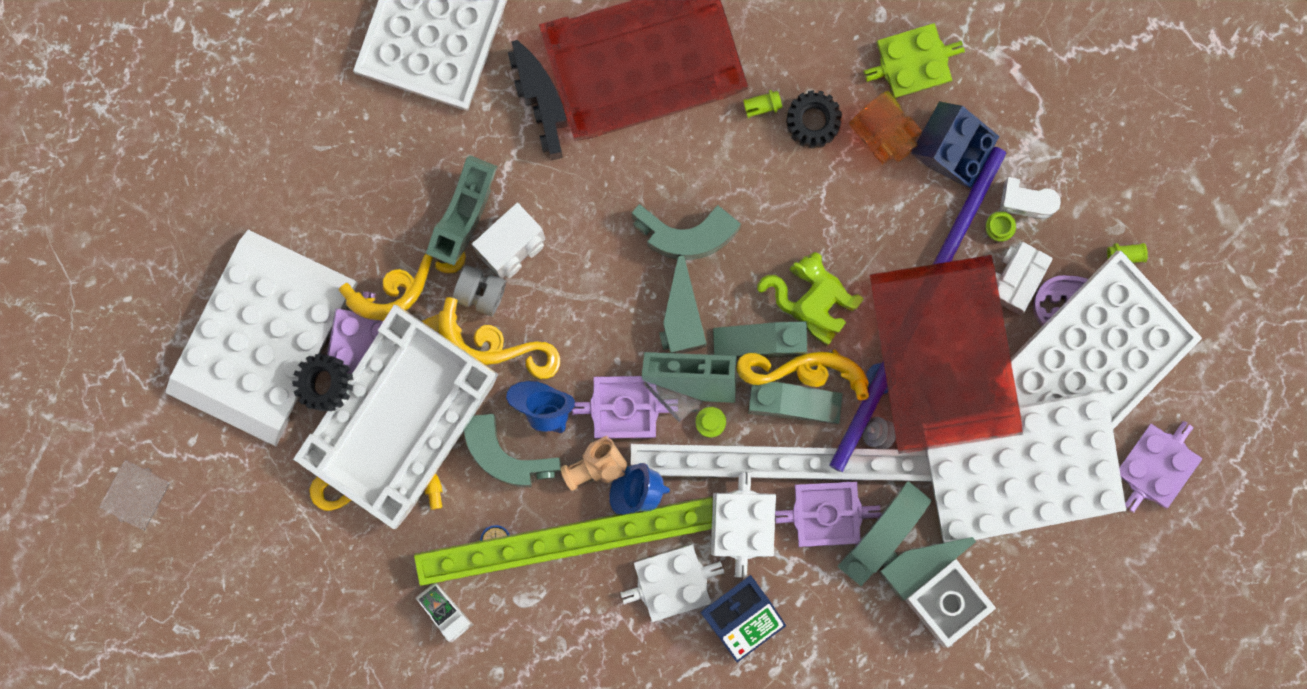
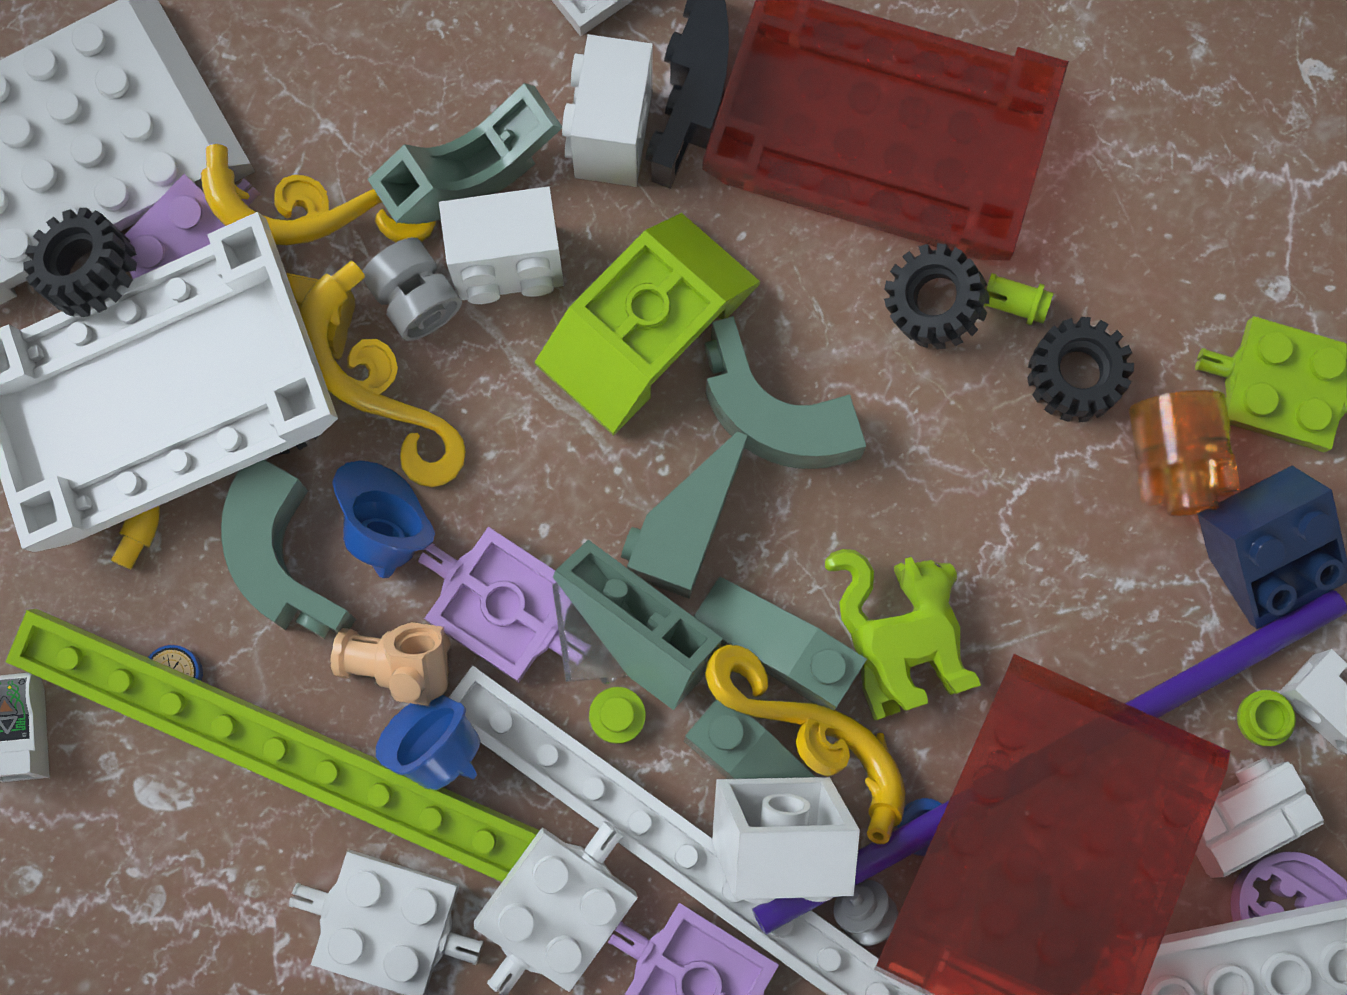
camera: 30 degrees right, 5 degrees down
(514, 141) = (609, 109): none -> white brick
(597, 231) = (642, 318): none -> lime slope
(743, 129) = (915, 274): none -> black tyre
(823, 424) = (785, 839): none -> white brick

